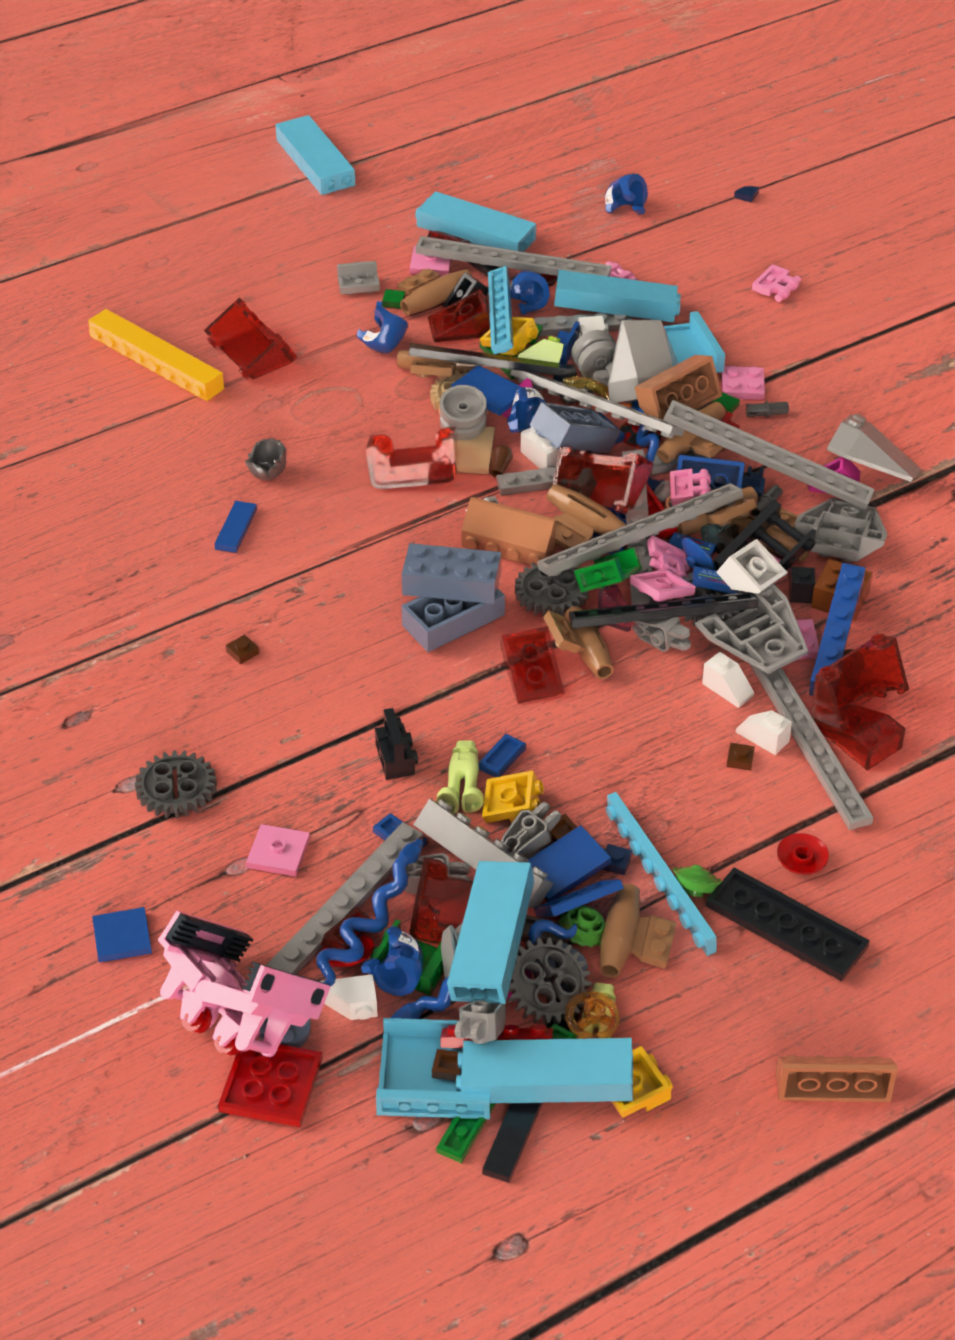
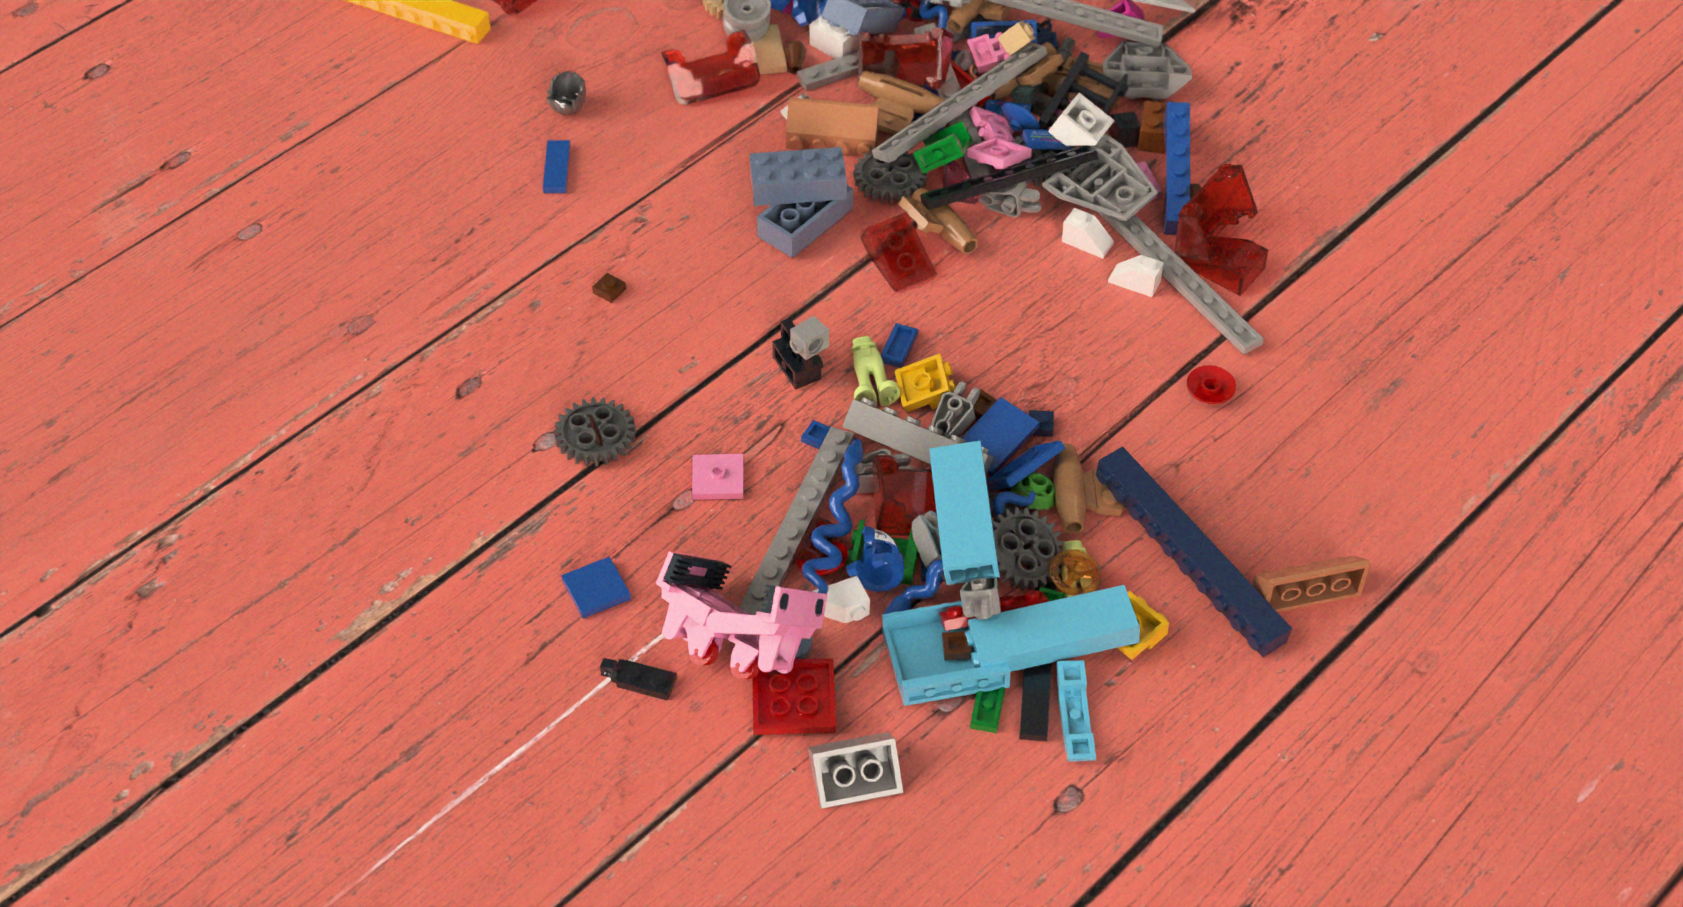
camera: 15 degrees left, 5 degrees up
(130, 1031) = (639, 677): none -> black hinge
(303, 1169) = (855, 769): none -> light grey slope
(401, 730) = (809, 337): none -> light grey brick
(546, 1158) = (1074, 711): none -> medium azure slope
(663, 877) = (1074, 415): medium azure plate -> none
(696, 880) = (1123, 428): bright green piece -> none
(715, 475) = (1017, 37): none -> tan slope
(723, 1022) = (1193, 552): none -> dark blue brick
(740, 756) = (1122, 304): reddish brown plate -> none
(787, 923) = (1218, 452): black plate -> none

